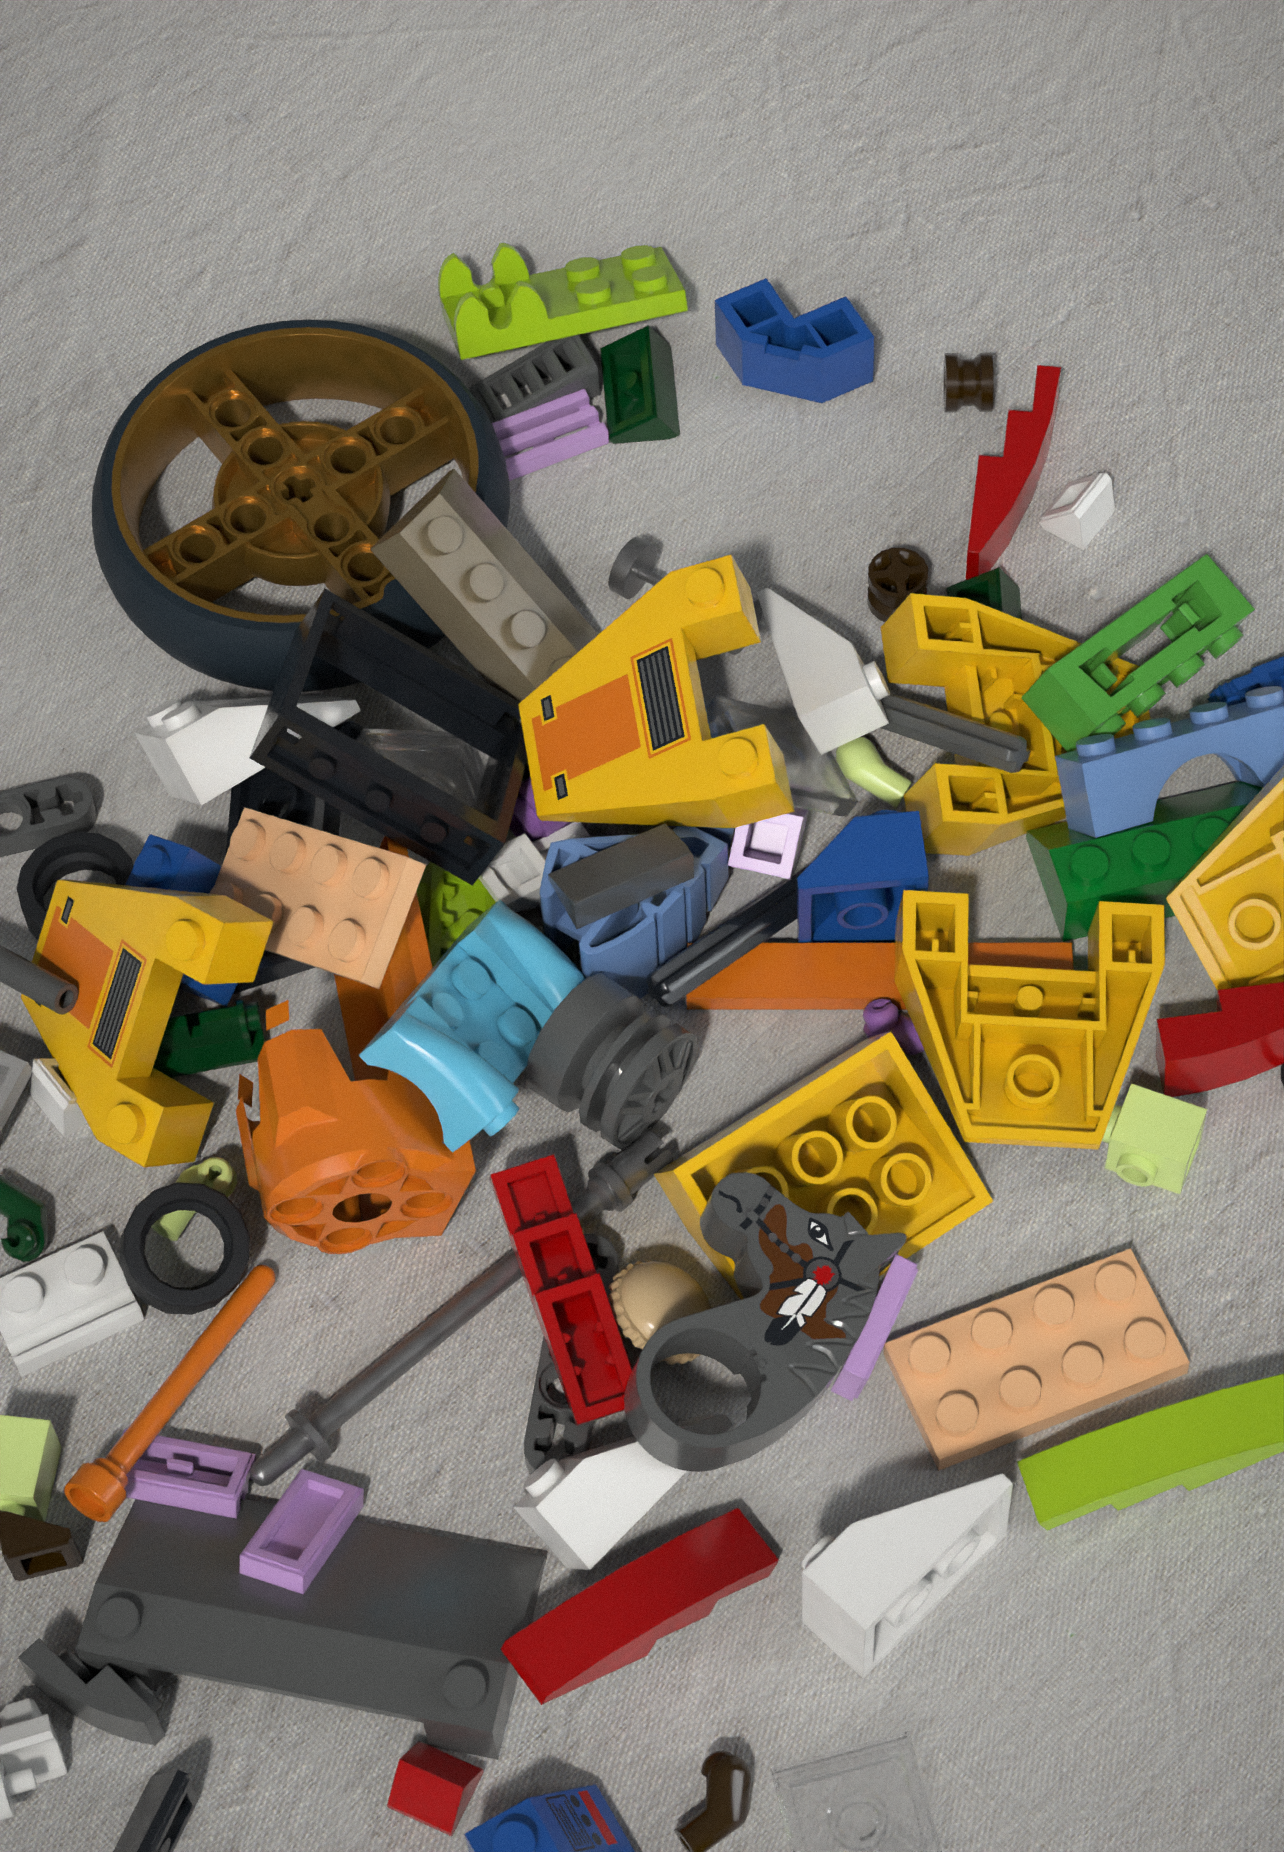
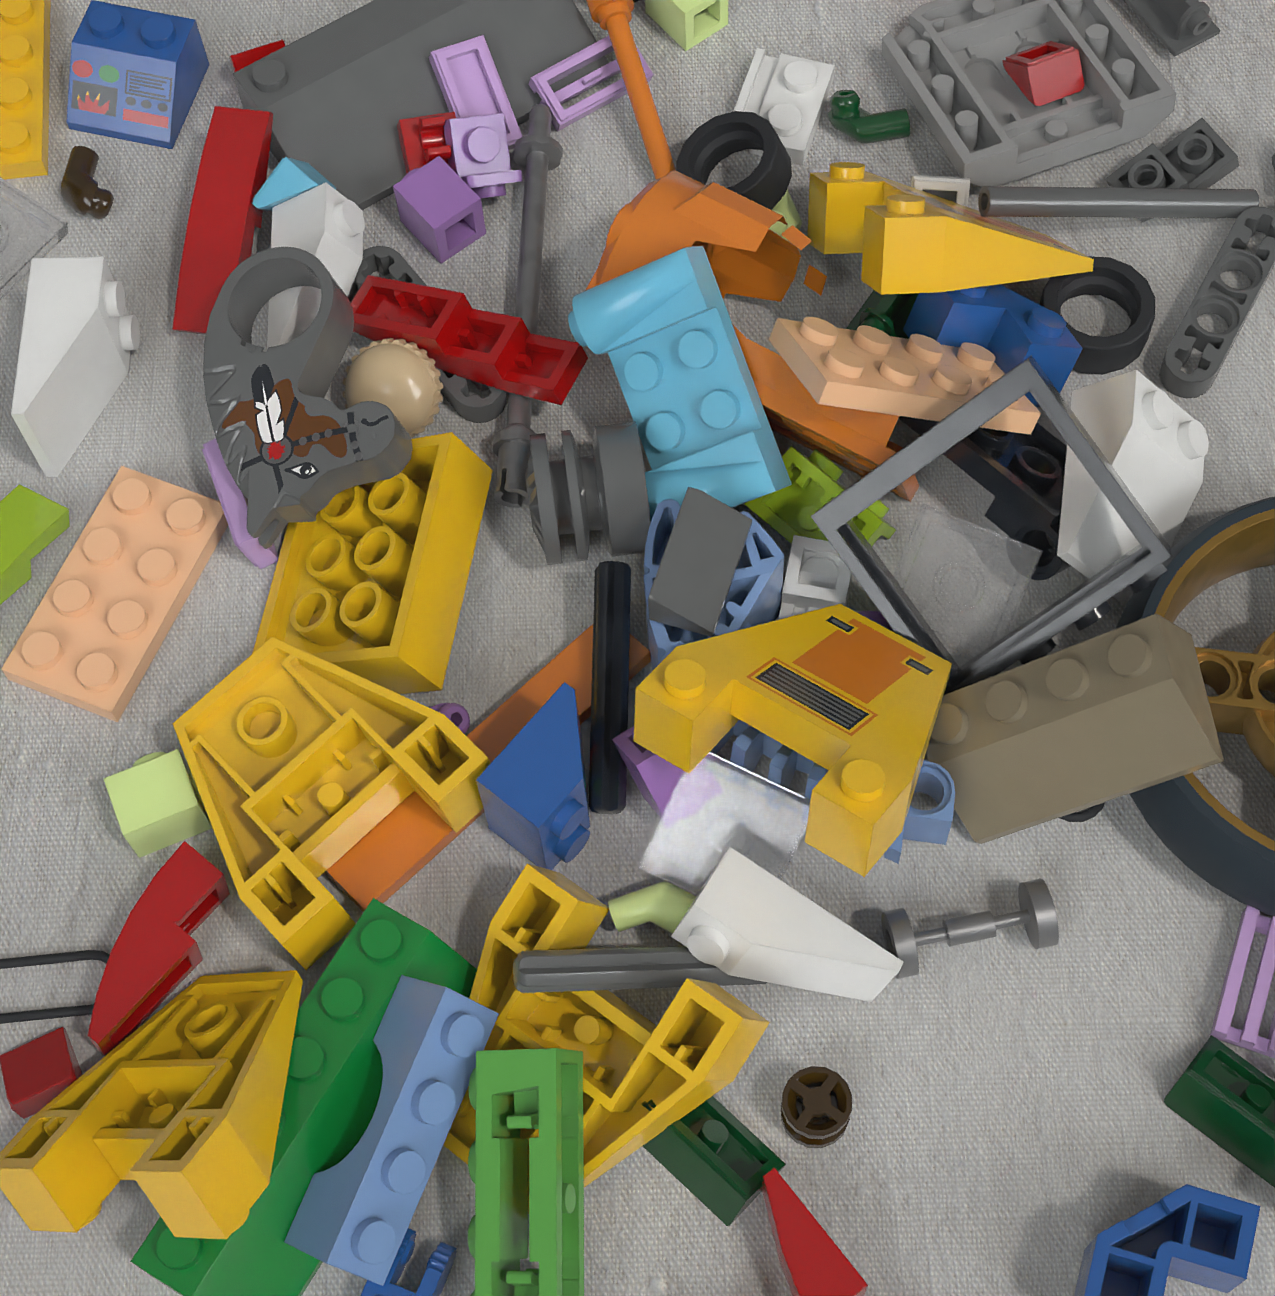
camera: 135 degrees right, 5 degrees up
(370, 1462) = (481, 153): none -> bracket
(387, 1524) = (423, 139): none -> red tile
(446, 1455) = (439, 209): none -> medium lavender brick
(552, 1566) = (287, 181): none -> medium azure slope

